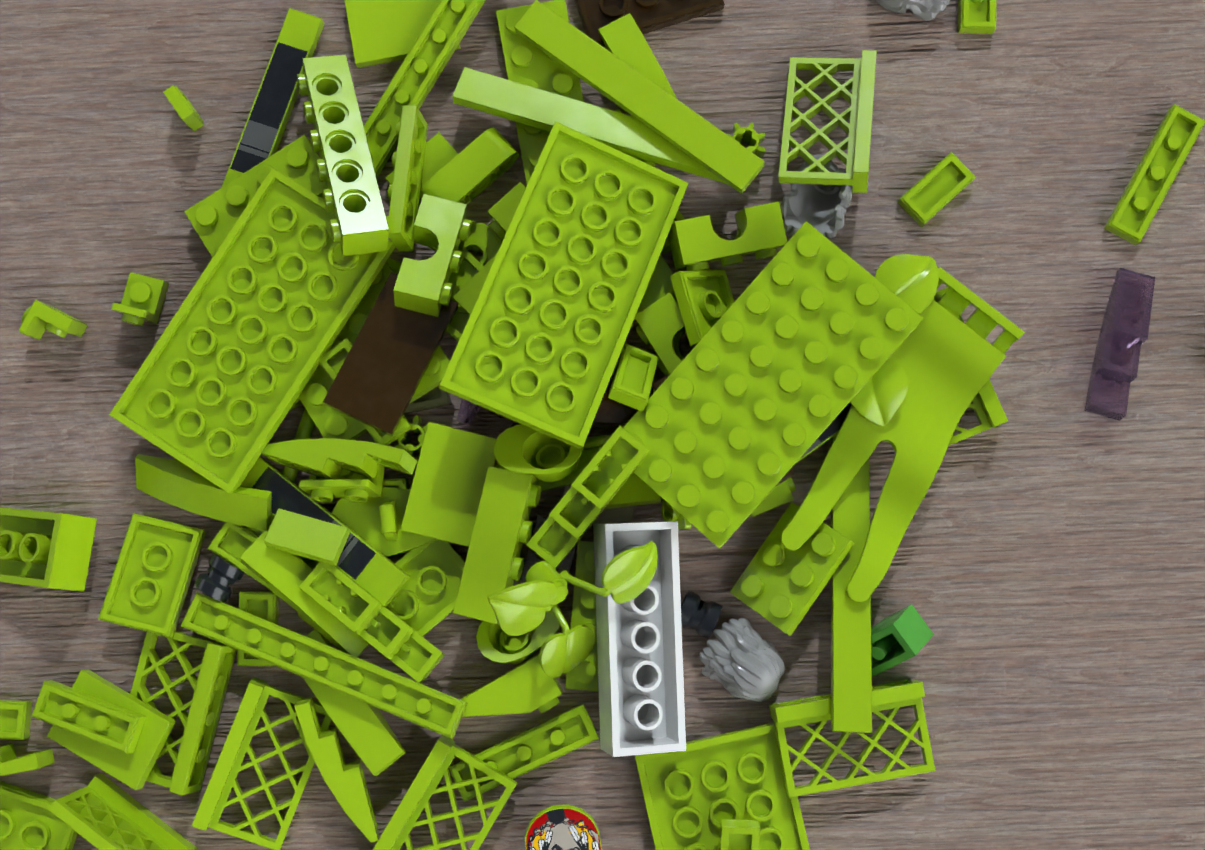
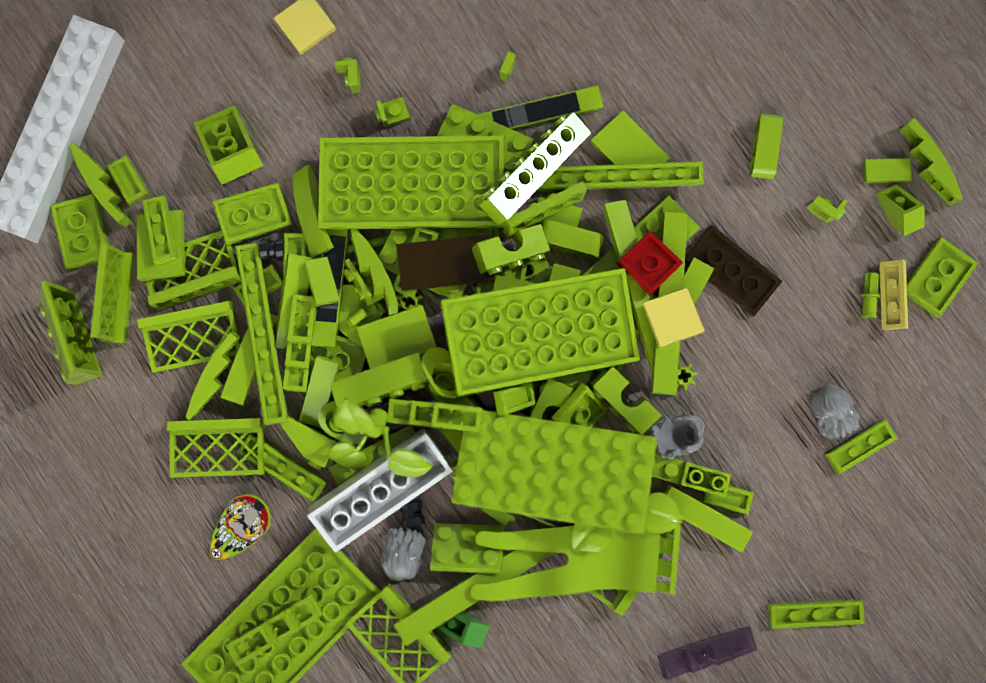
camera: 50 degrees right, 0 degrees up
(451, 634) = (319, 389): none -> lime tile
(569, 86) = (649, 263): none -> red tile
(661, 101) = (673, 317): none -> light yellow tile
(858, 130) = (729, 434): lime fence -> none
(883, 213) = (691, 475): none -> lime slope
(955, 228) = (710, 520): none -> lime slope

